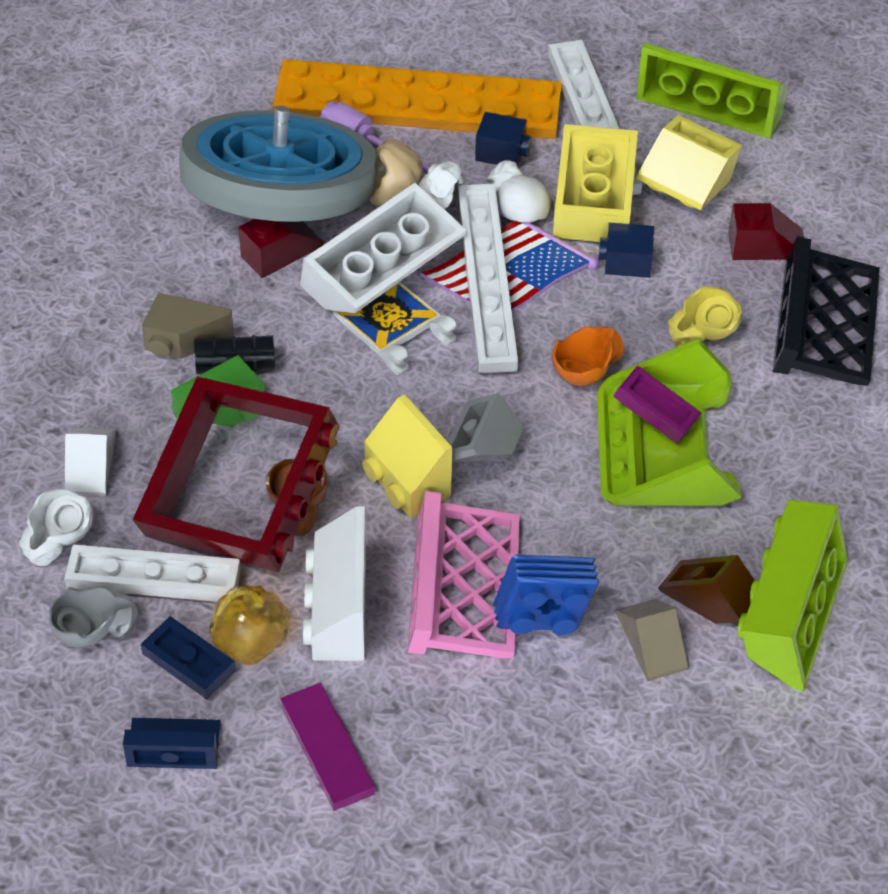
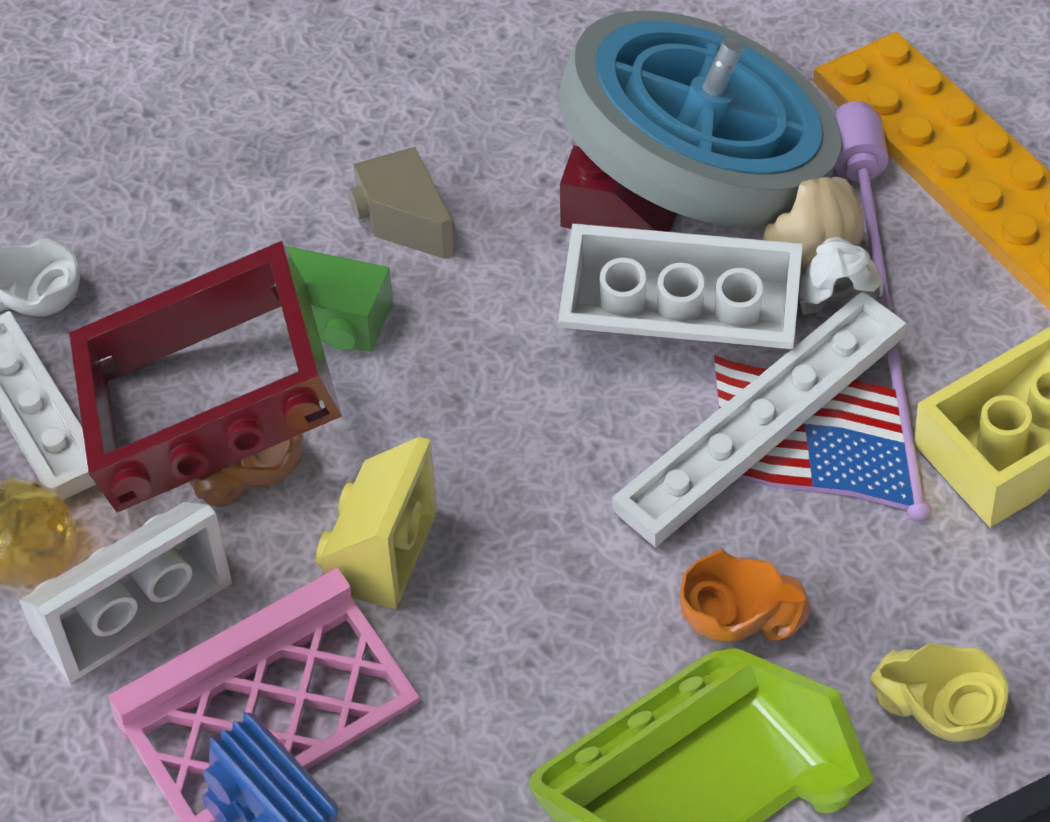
camera: 55 degrees right, 0 degrees up
(88, 460) = (152, 247): white slope -> none
(253, 350) = (413, 271): black axle -> none
(393, 321) = (612, 376): flag -> none
(485, 431) = (489, 570): light grey slope -> none
(501, 139) = (1003, 290): dark blue brick -> none
(519, 195) = (930, 356): white hair -> none
(627, 250) = (969, 531): dark blue brick -> none
(657, 404) = (724, 730): magenta tile -> none

